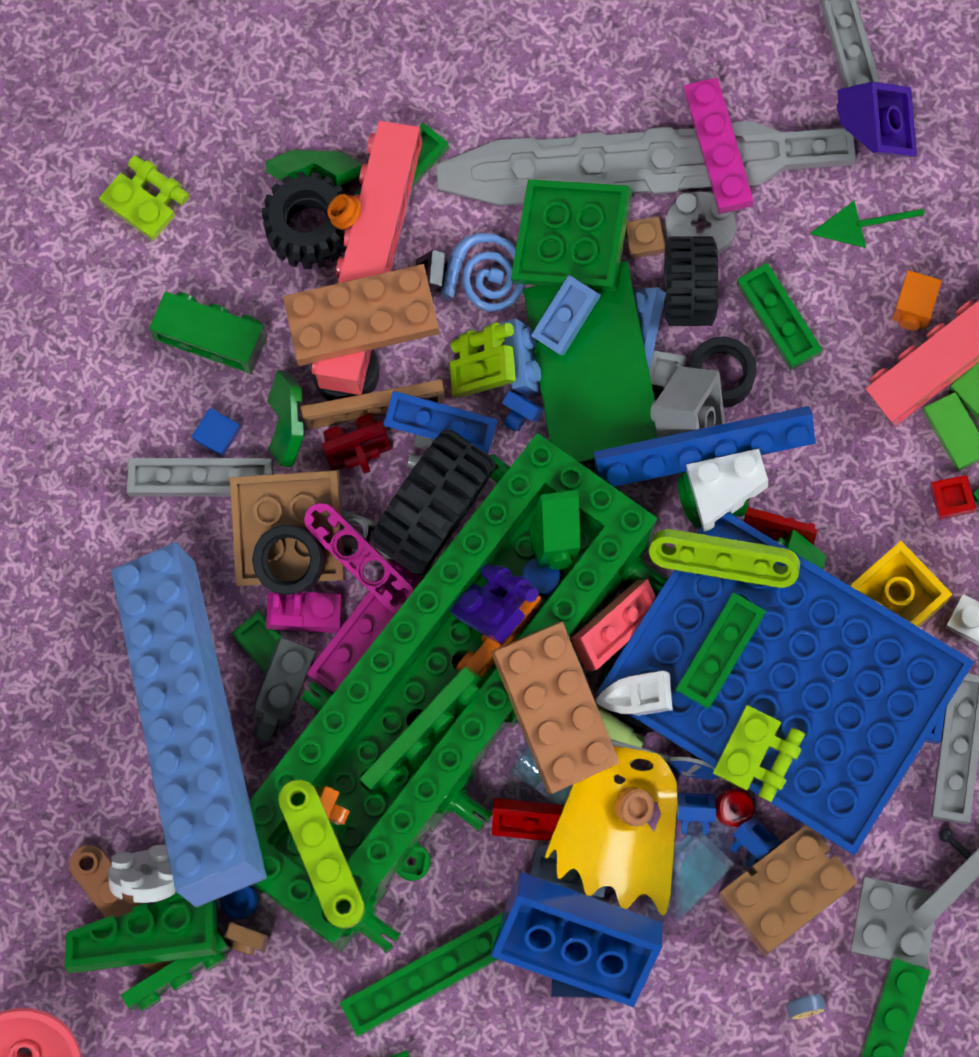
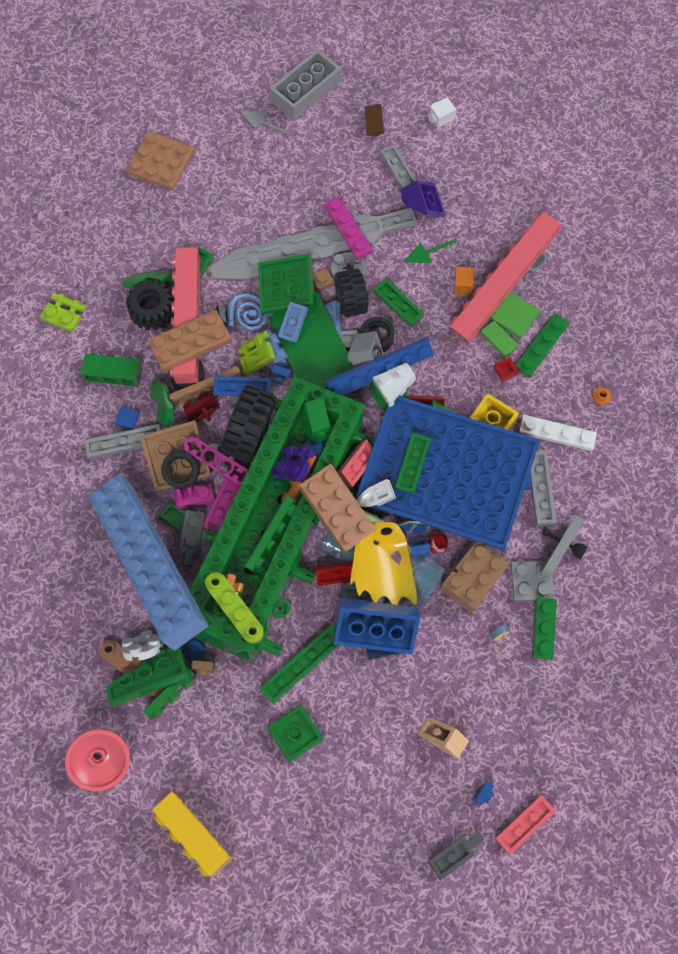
camera: 20 degrees left, 5 degrees down
(344, 211) = (169, 293): orange plate -> none
(634, 806) = (387, 554): nougat tile -> none
(724, 558) = (403, 417): lime plate -> none
(748, 747) = (438, 508): lime plate -> none
(756, 839) = (452, 555): blue tile -> none

